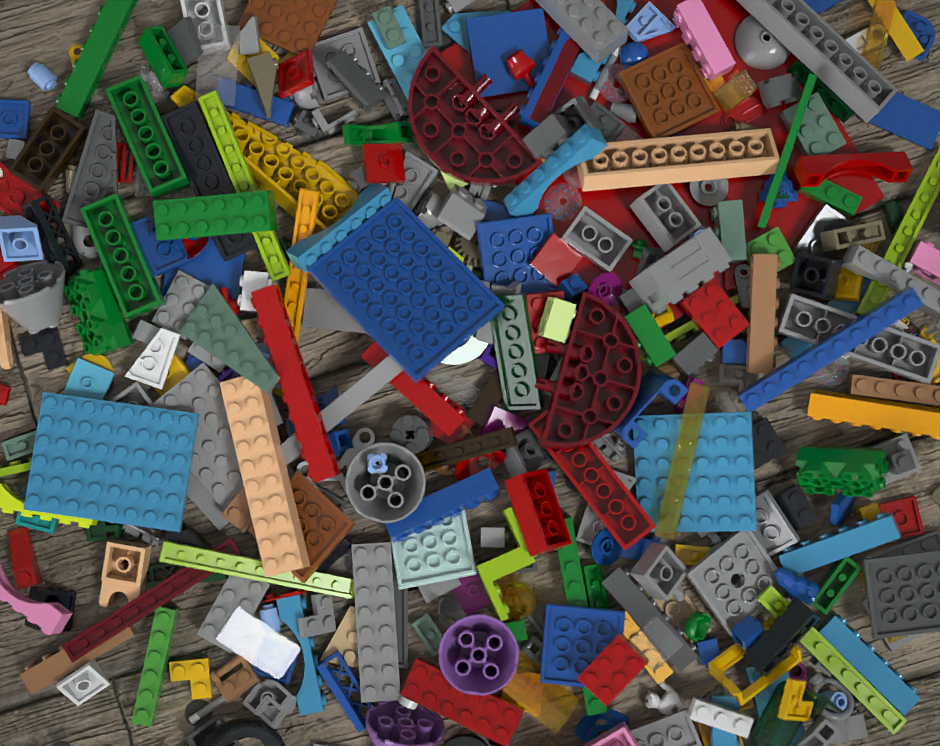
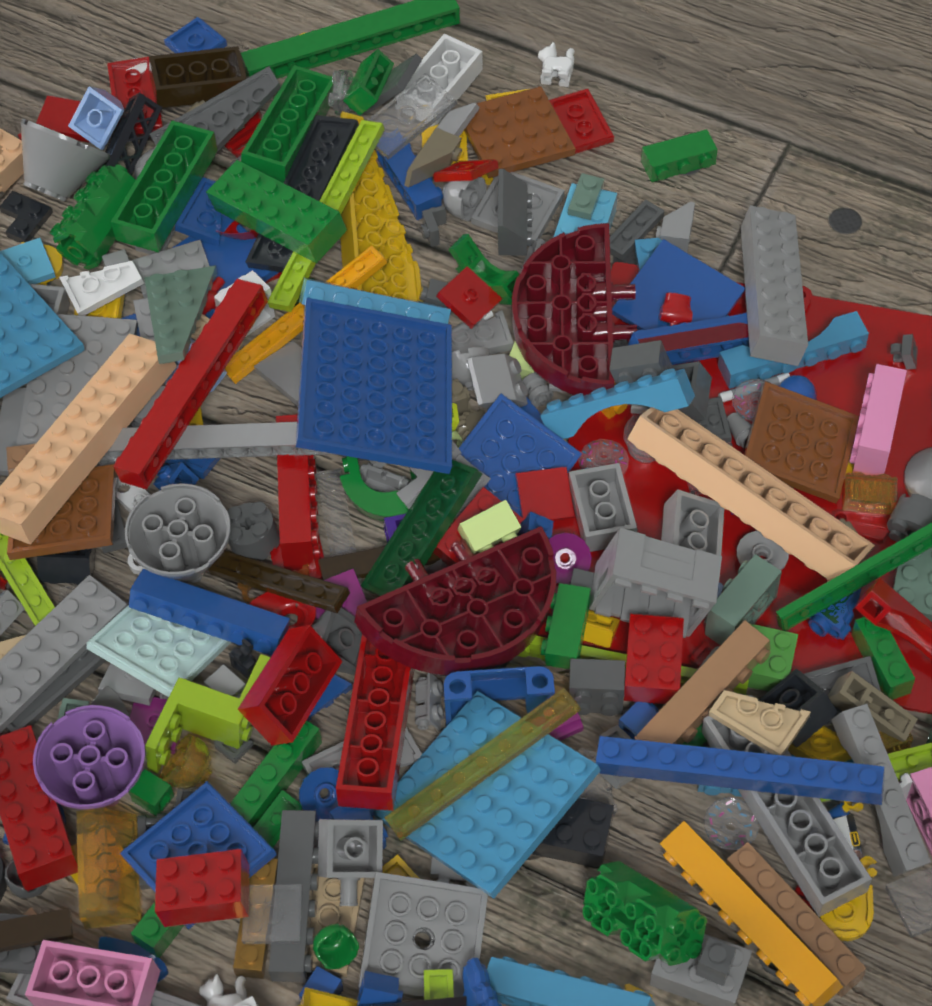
camera: 40 degrees right, 30 degrees down
(42, 76) = (256, 31): light blue brick -> none
(333, 127) = (450, 235): light grey bracket -> none
(382, 464) = (185, 496): light blue plate -> none
(486, 513) = (242, 659): none -> black plate
(649, 24) = (836, 376): light blue wing -> none
(773, 528) = (513, 918): light grey plate -> none
(795, 507) = (550, 927): black slope -> none
(814, 308) = (760, 722): none -> tan wing
(841, 509) = (611, 964): blue tile -> none

